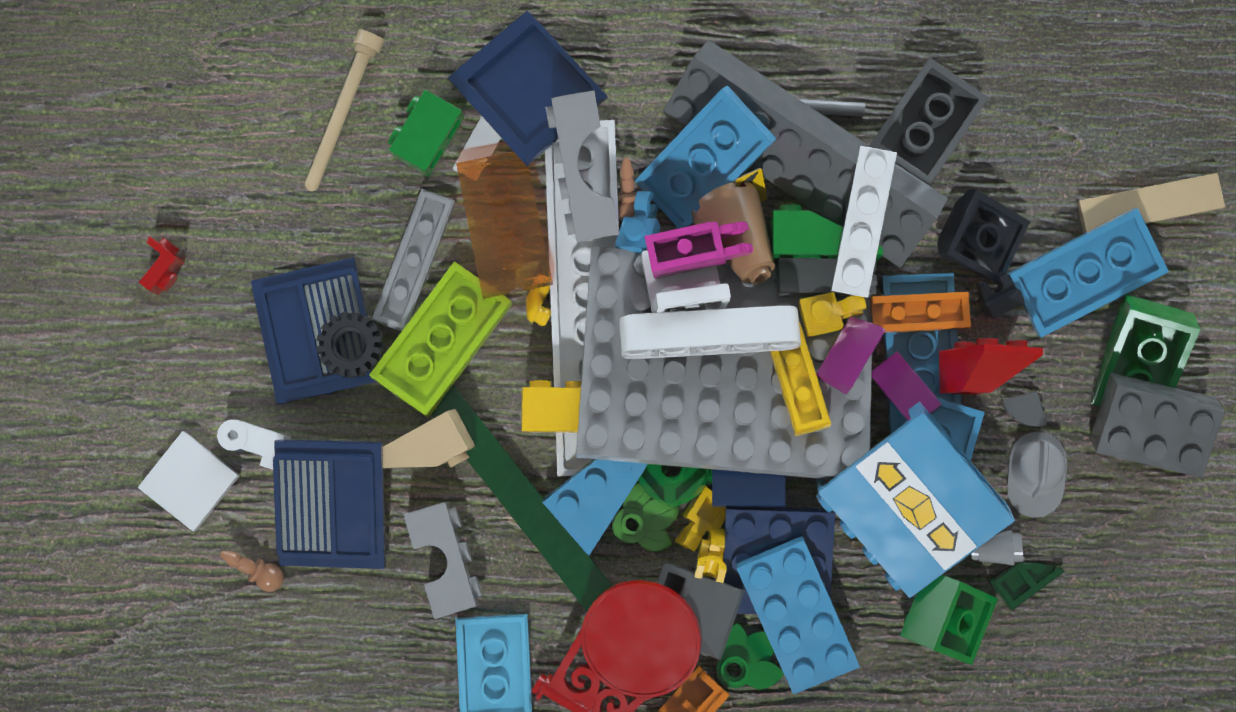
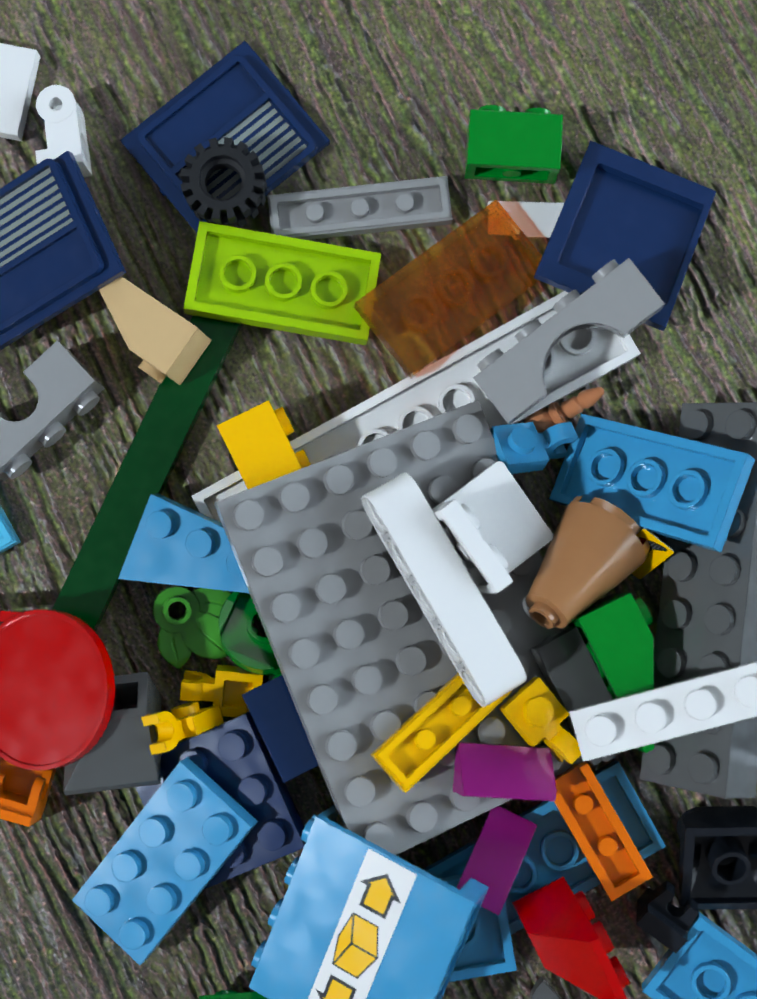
camera: 65 degrees right, 0 degrees up
(366, 47) = (577, 32): tan piece -> none
(534, 310) = (371, 374): yellow arm -> none
(694, 248) = (535, 518): dark pink hinge -> none
(753, 656) = (95, 828): green plate -> none

